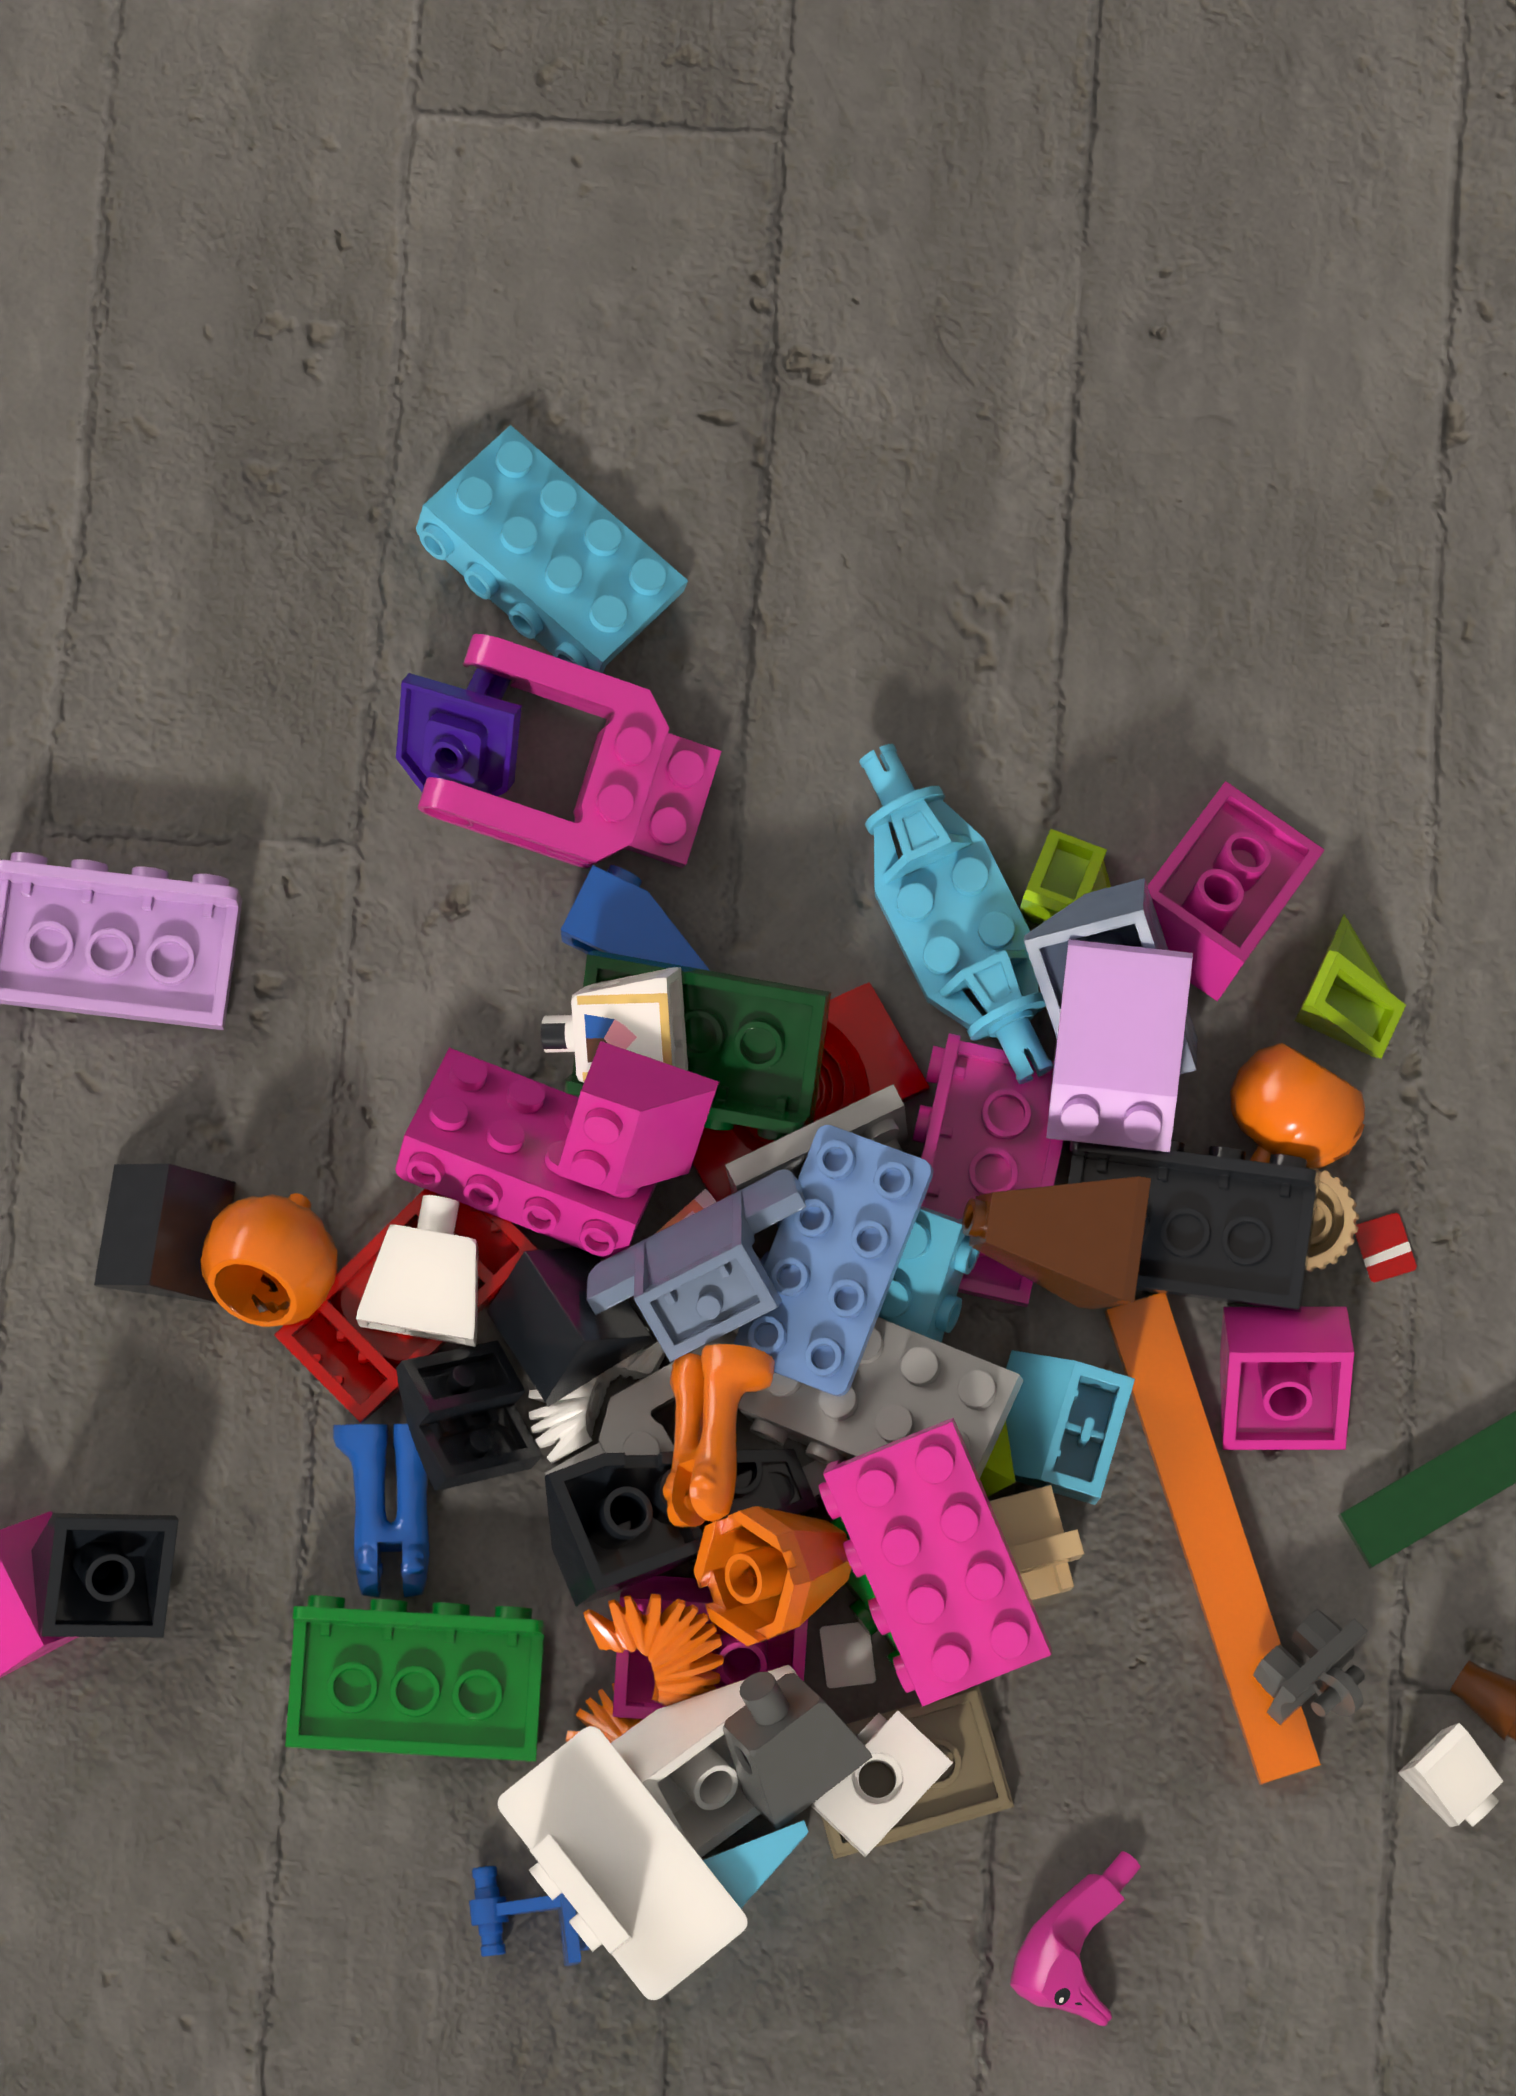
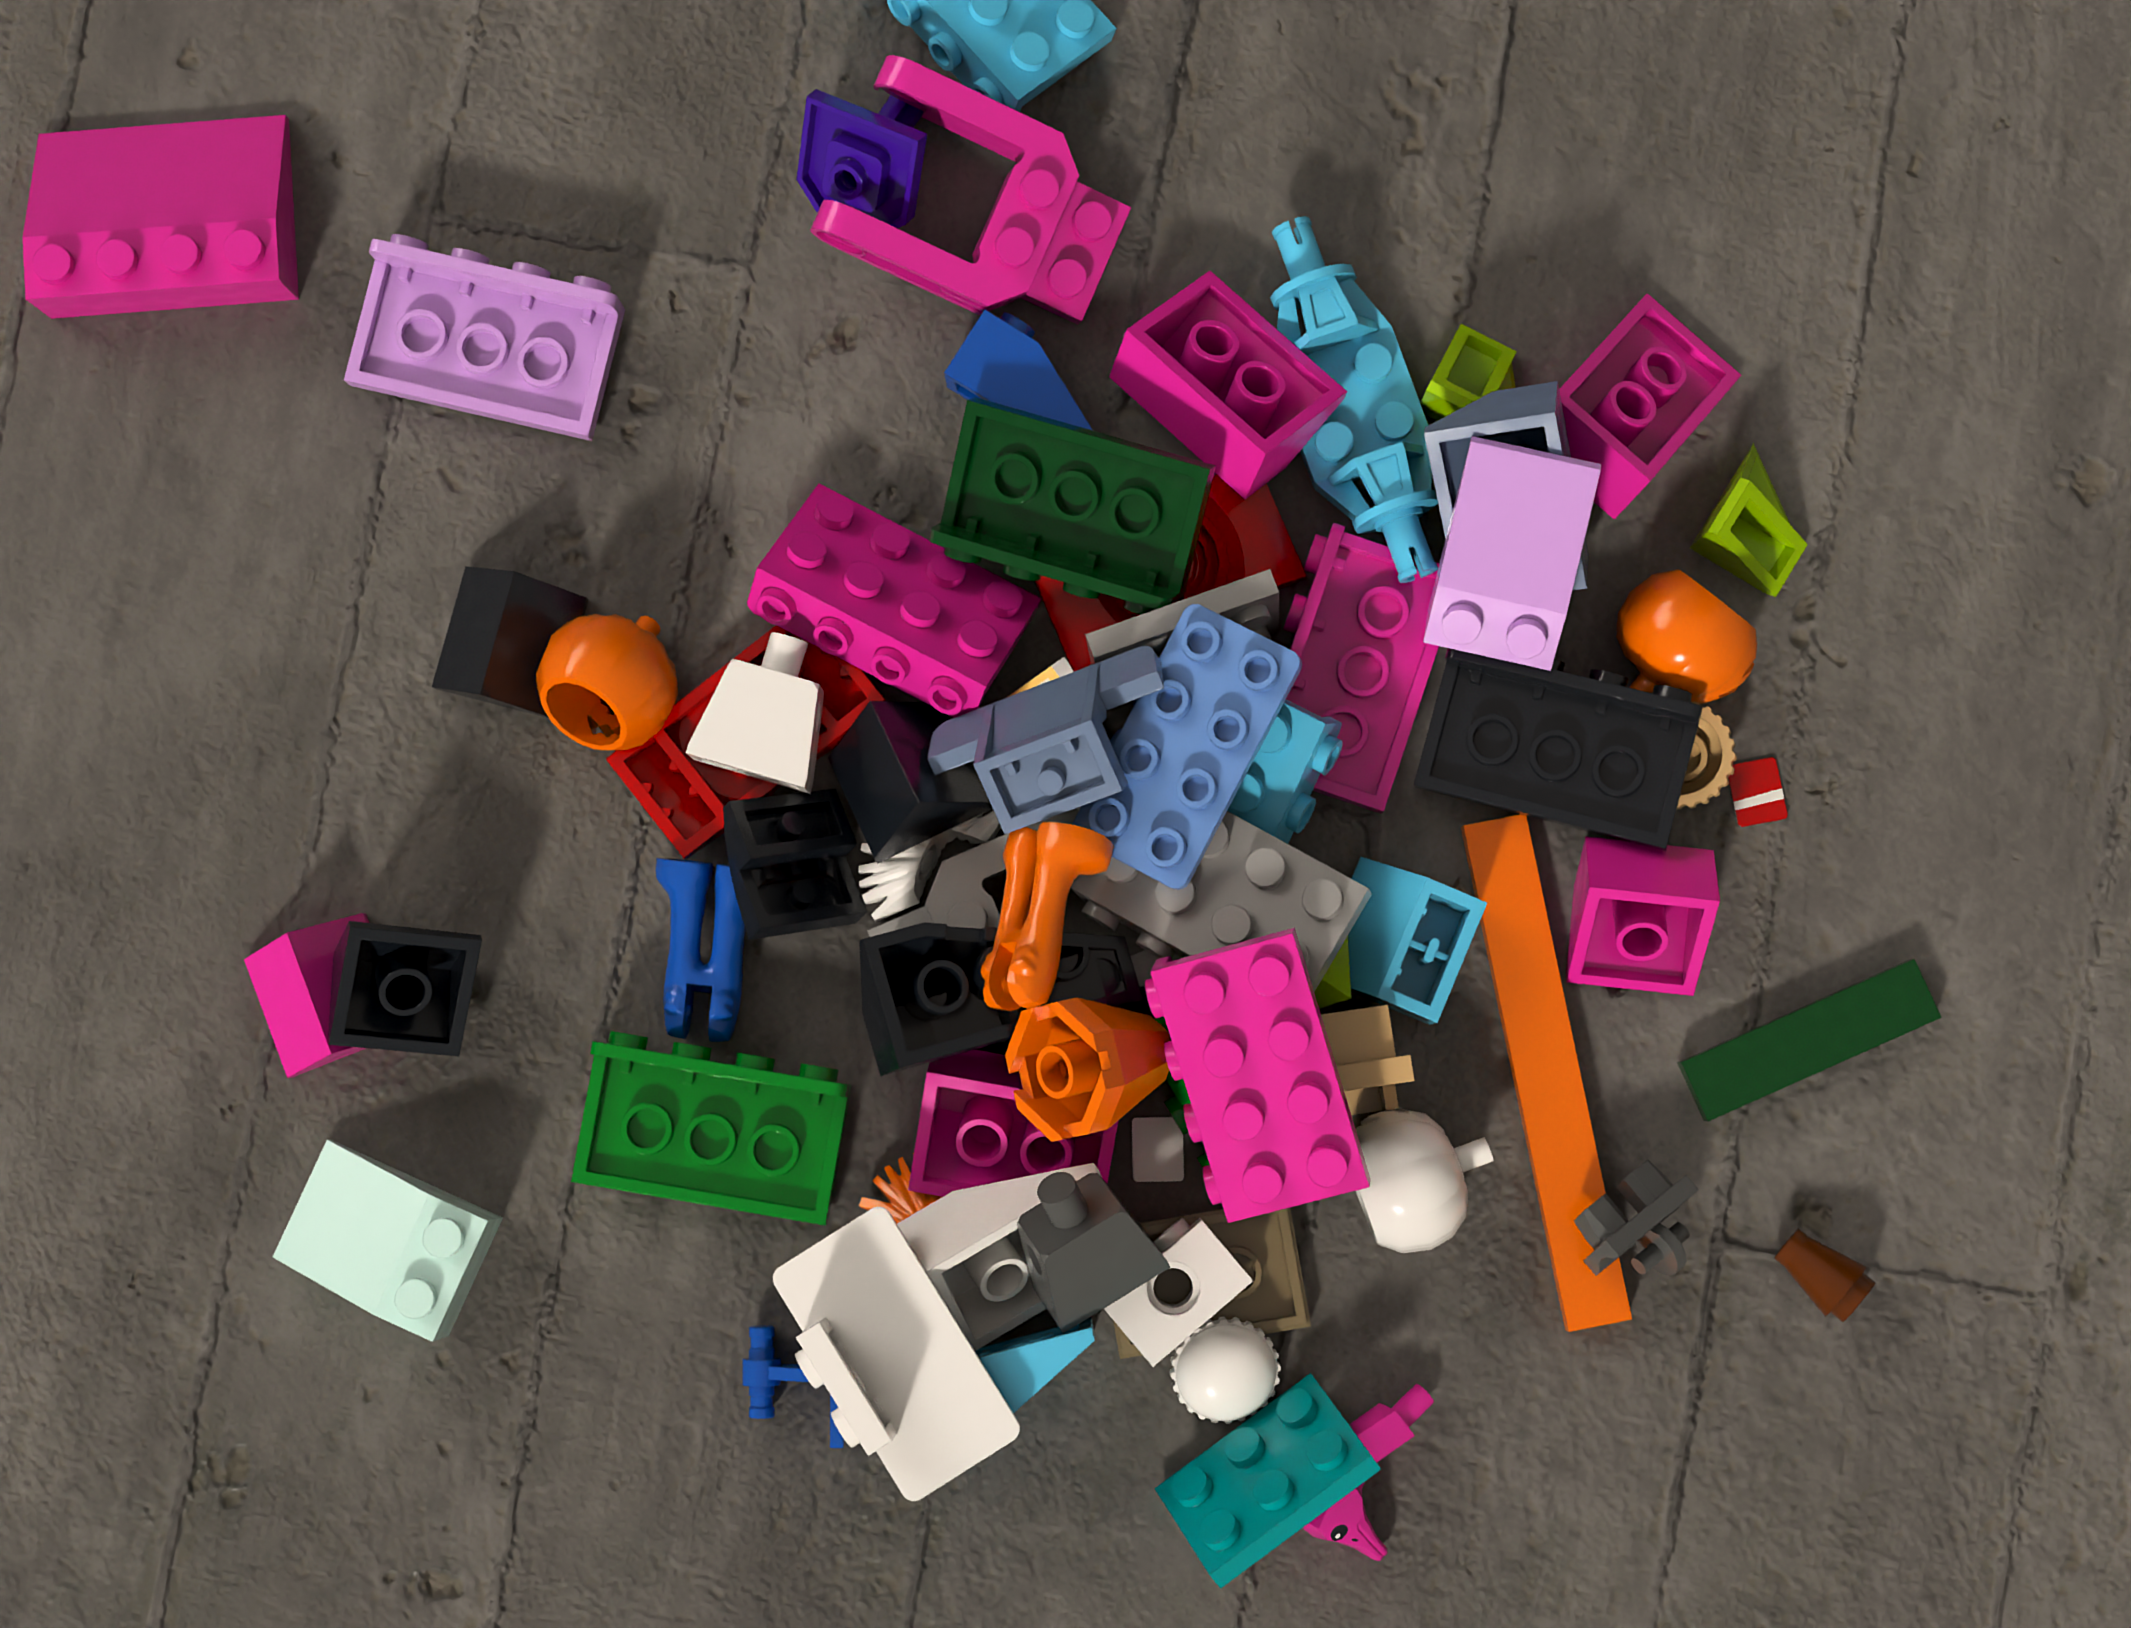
camera: 15 degrees right, 5 degrees up
(109, 1823) = (387, 1241): none -> light aqua slope
(629, 1012) = (998, 486): white torso -> none
(635, 1122) = (995, 579): dark pink slope -> none
(673, 1641) = (976, 1127): orange hair -> none
(831, 911) = (1225, 383): none -> dark pink slope
(936, 1858) = (1225, 1370): none -> white hat
(987, 1954) = (1266, 1480): none -> teal plate
(1067, 1237) = (1435, 749): reddish brown slope -> none
(1097, 1652) = (1416, 1179): none -> white piece
(1454, 1777) = (1769, 1348): white slope -> none

